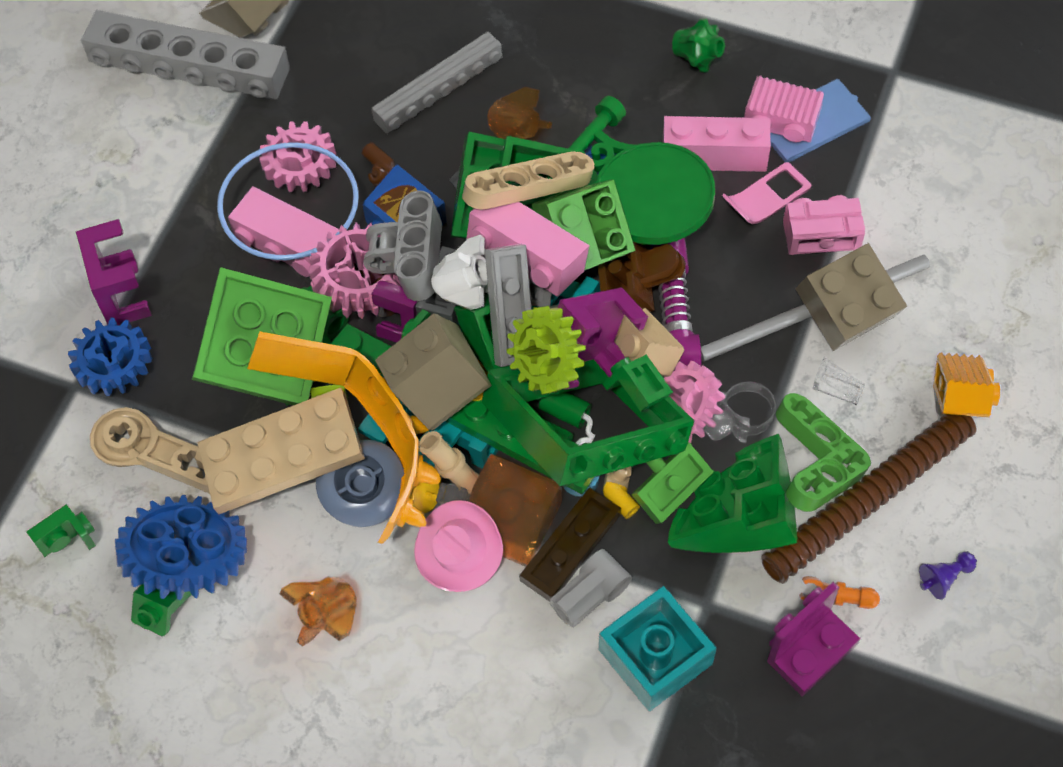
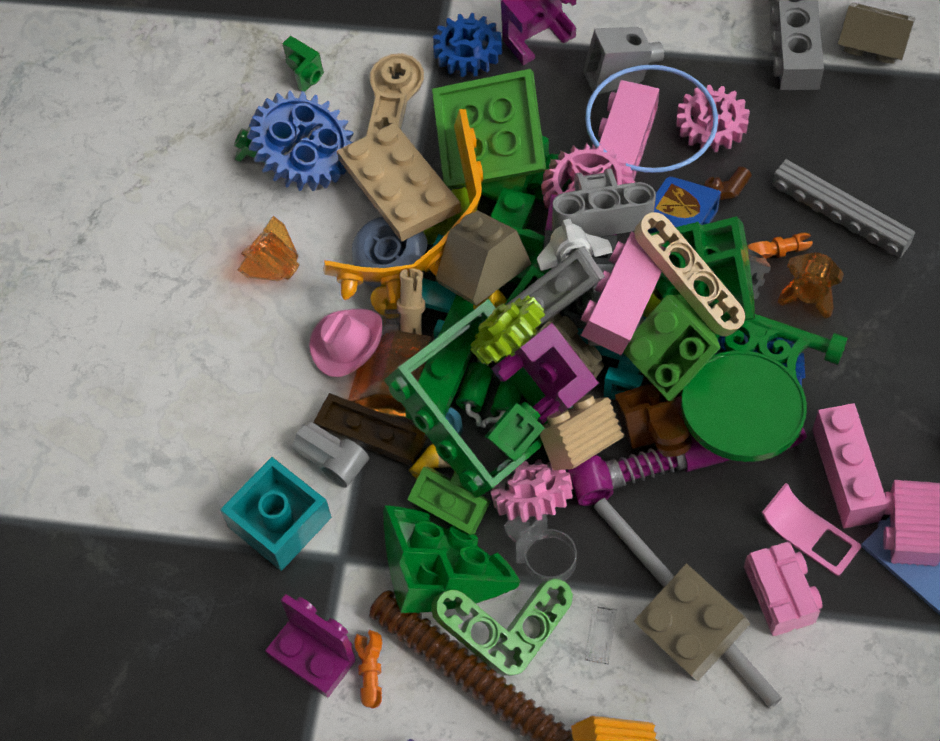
camera: 80 degrees right, 0 degrees up
(194, 200) = (616, 50): none -> light grey torso
(462, 128) = (780, 246): none -> orange piece

